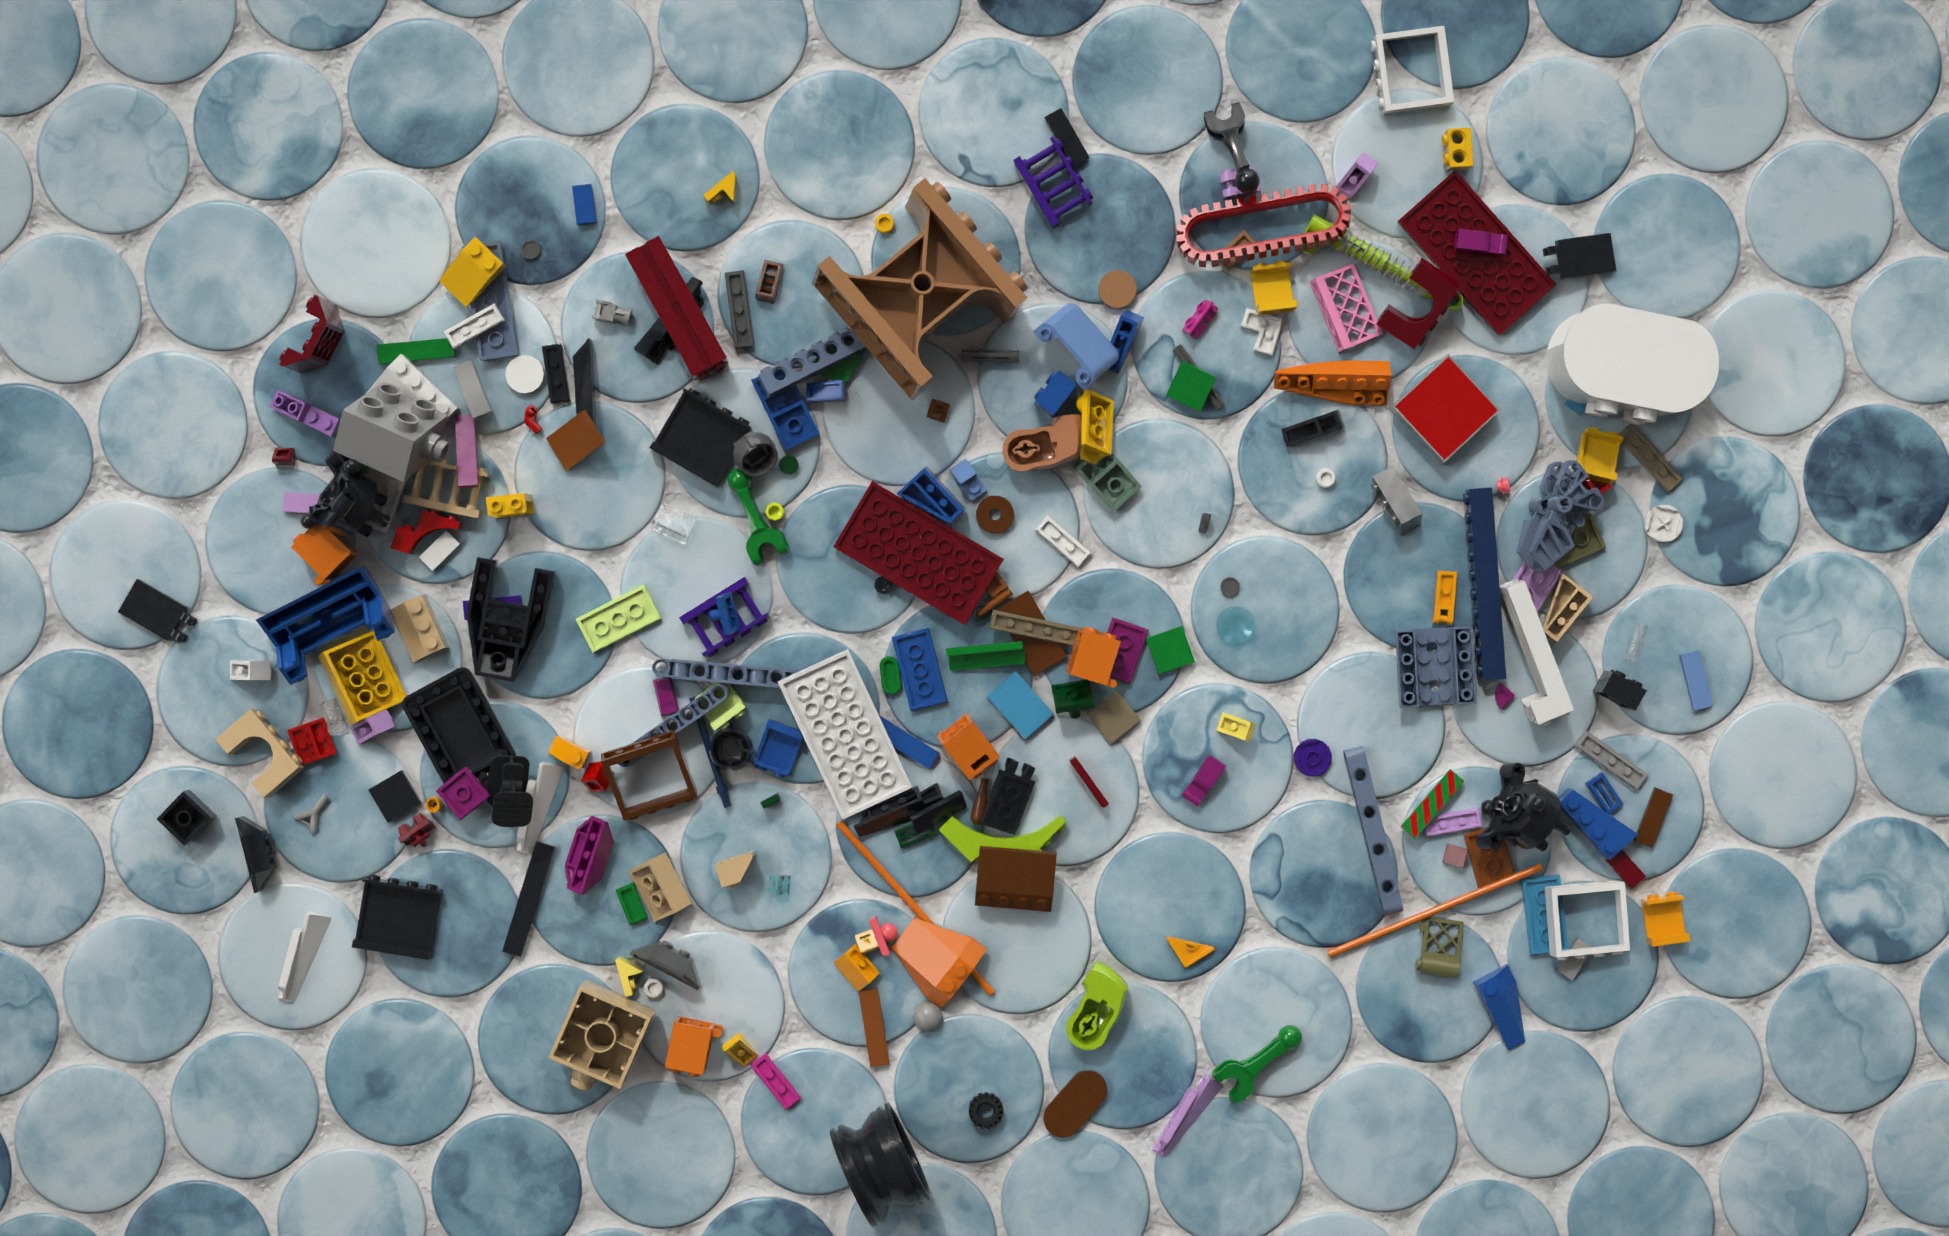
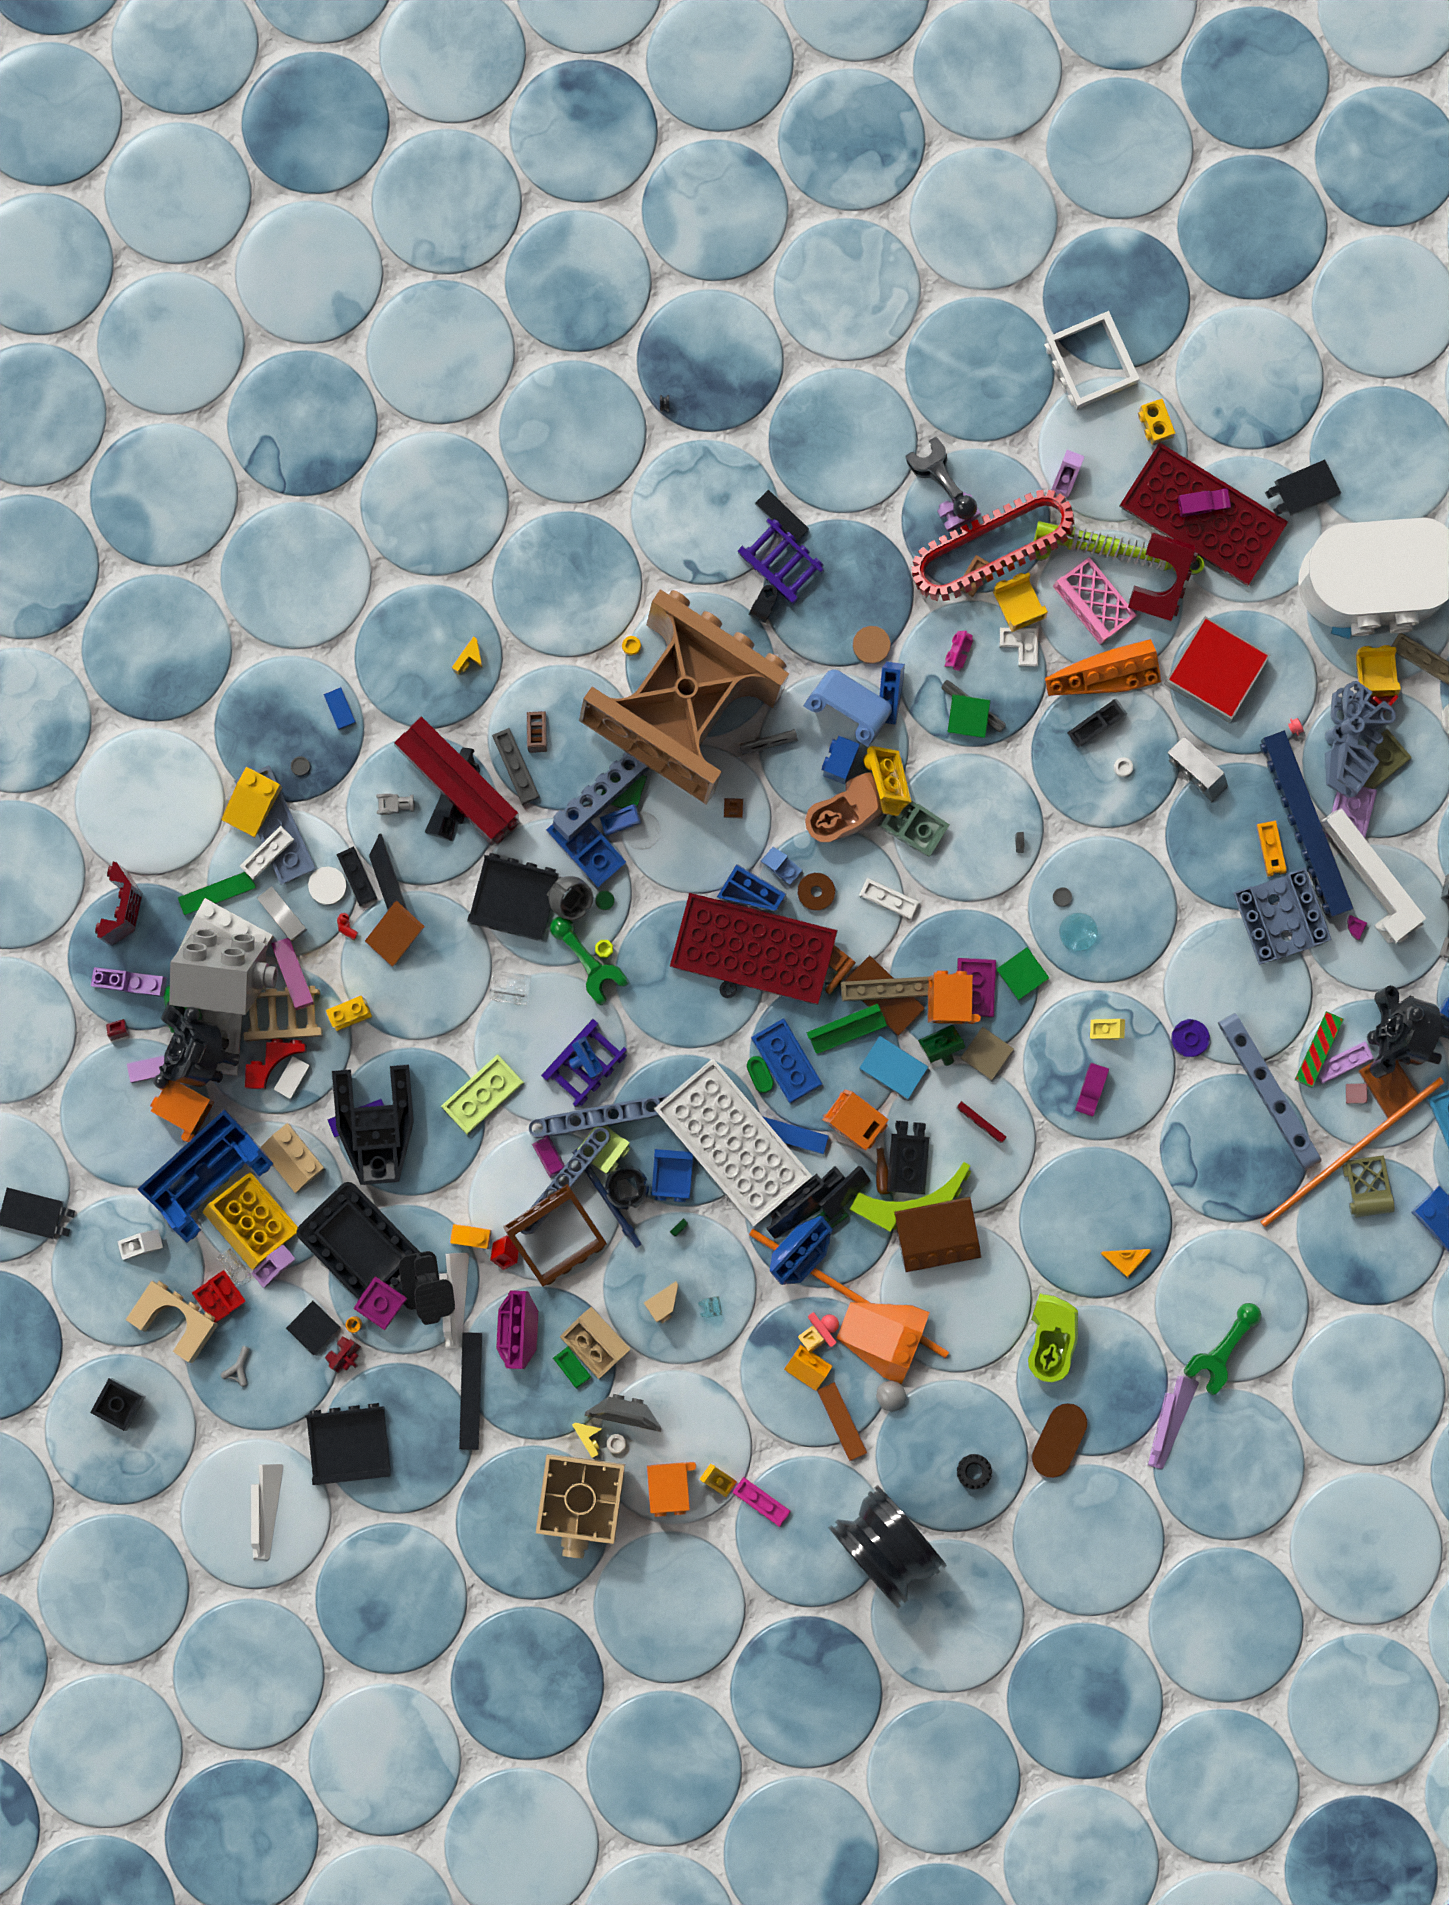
camera: 15 degrees left, 5 degrees down
(257, 852) = (195, 1419): black wedge -> none
(879, 857) = (801, 1251): none -> blue wedge
(1022, 221) = (763, 606): none -> black piece
(1564, 608) = (1390, 822): tan wedge -> none

